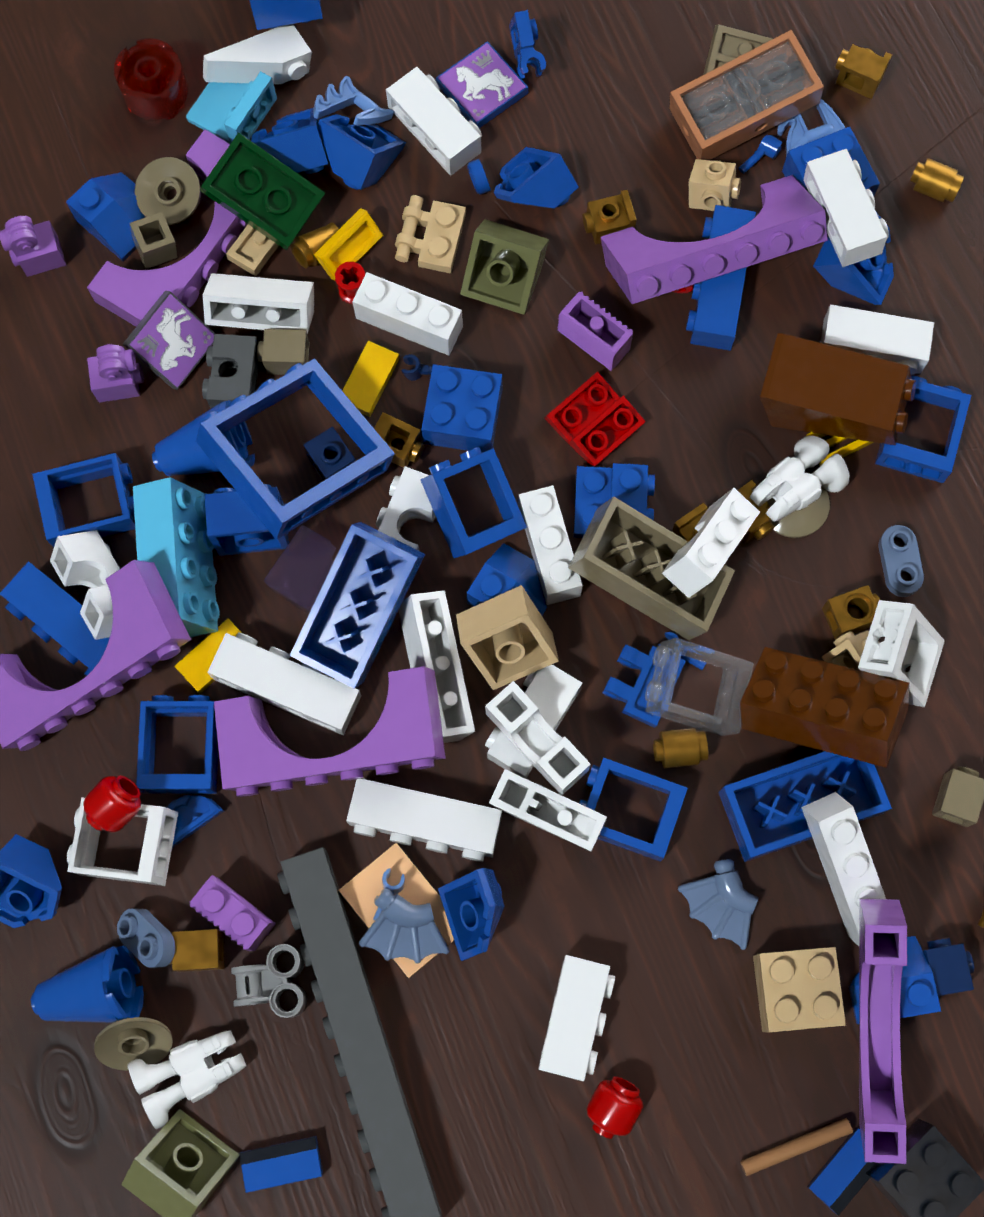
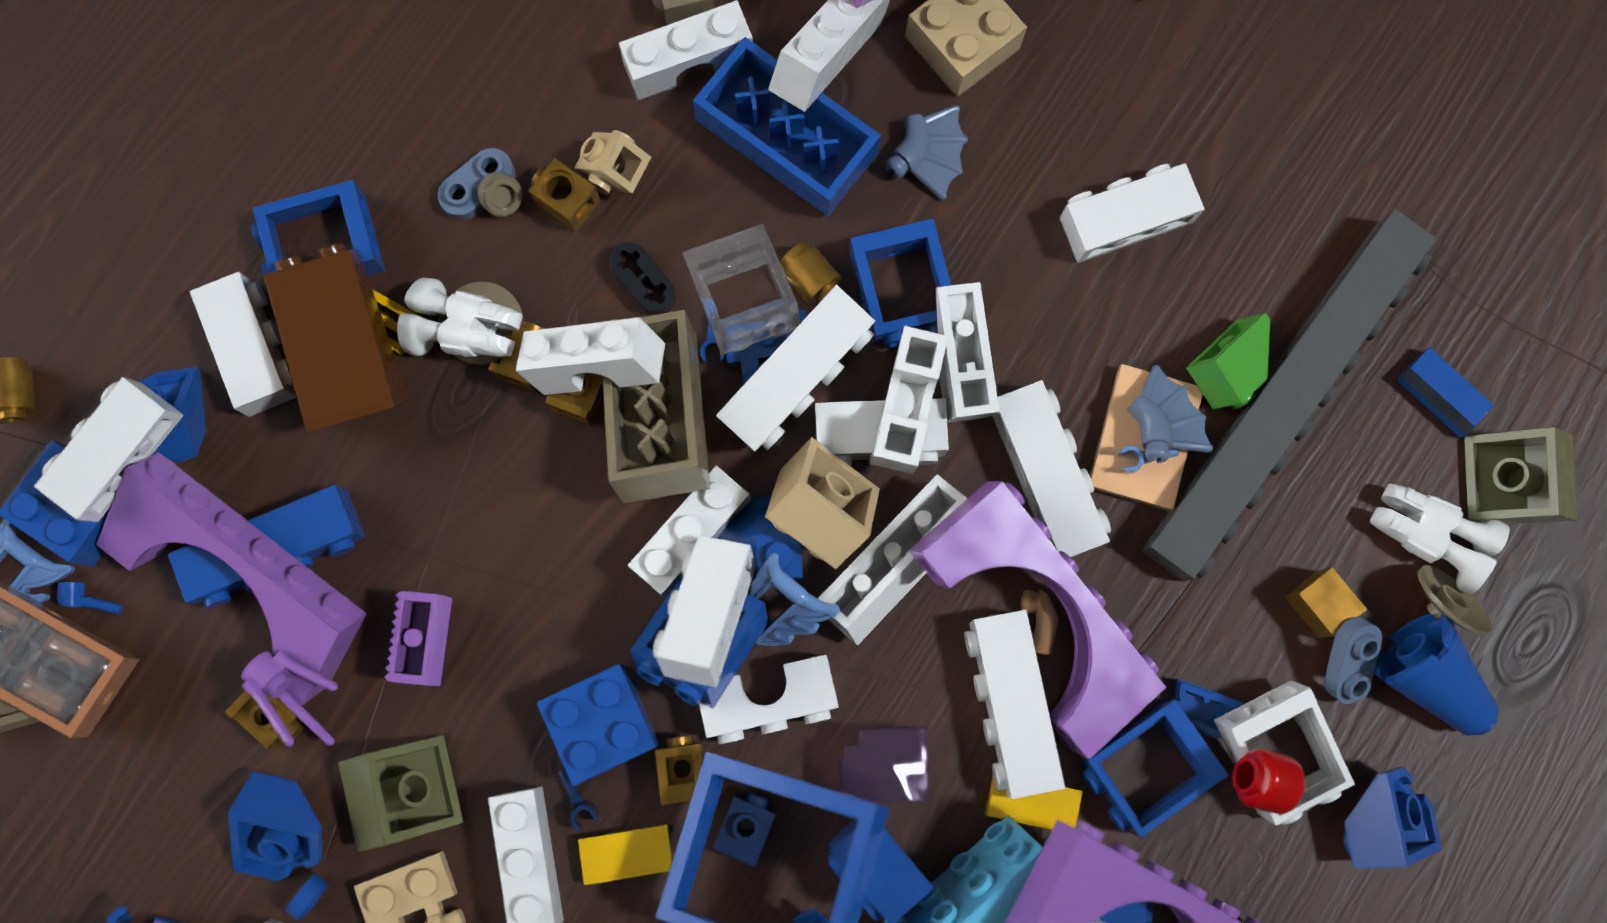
camera: 130 degrees left, 5 degrees up
(232, 914) = (1270, 593): medium lavender brick -> none
(266, 983) = (1305, 516): light grey piece -> none
(323, 743) = (1045, 618): none -> medium nougat arm
(357, 604) = (890, 679): brick -> none
(410, 1010) = (1234, 363): none -> bright green slope
(443, 574) = (799, 616): none -> medium blue piece
(473, 910) = (1105, 363): blue slope -> none
(485, 508) = (705, 611): none -> white brick
(595, 419) = (518, 579): red slope -> none
(599, 484) = (590, 506): blue plate -> none
(614, 683) = (796, 368): none -> white brick
(615, 1107) = (1182, 127): red head -> none
(630, 223) = (269, 677): none -> medium lavender plant
(713, 184) = (160, 622): tan brick -> none
(754, 622) = (635, 285): none -> black beam
(825, 706) = (685, 151): reddish brown brick -> none
(881, 569) = (500, 194): none -> dark tan tile
(907, 642) = (588, 105): white window -> none
(914, 770) = (662, 54): none -> white arch

